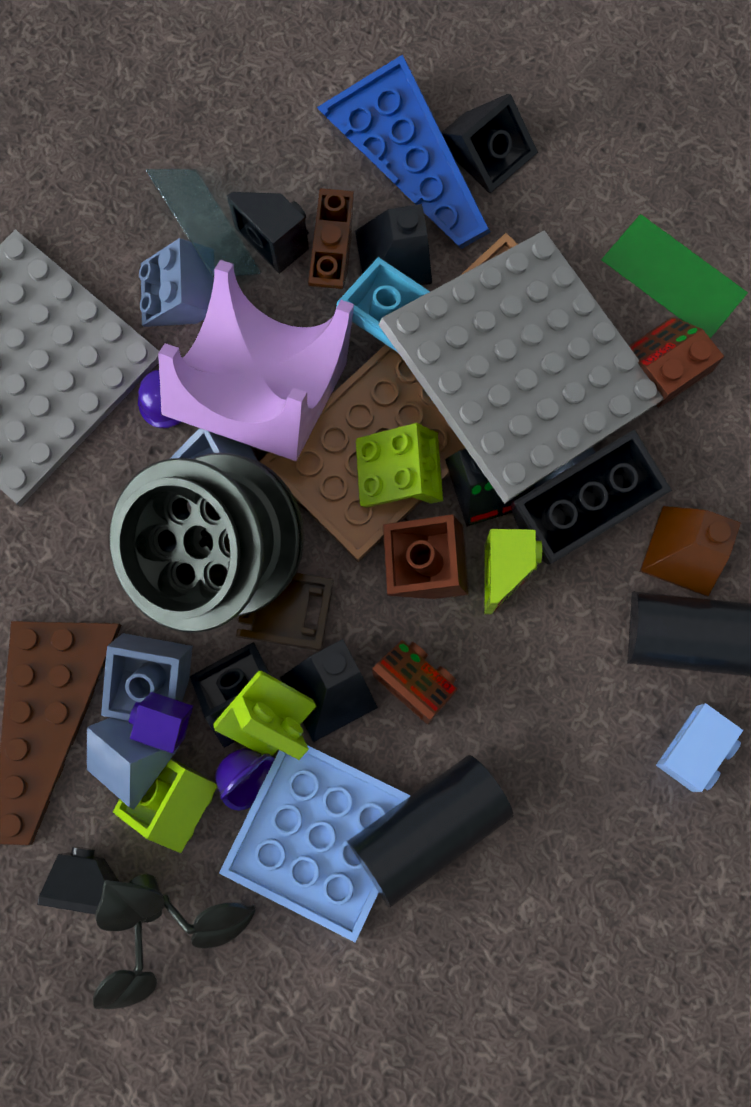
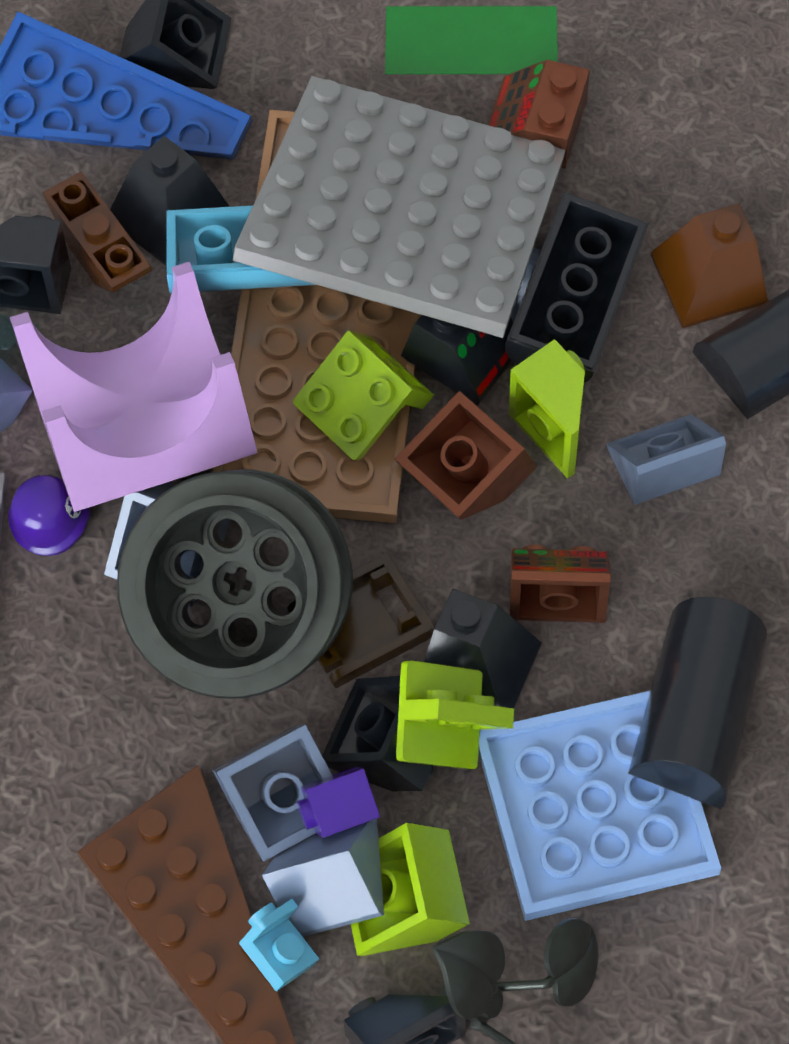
camera: 40 degrees left, 15 degrees down
(67, 773) = (277, 945): none -> medium azure bracket
(241, 777) = (465, 804): dark purple helmet -> none
(554, 649) = (668, 457): none -> sand blue slope

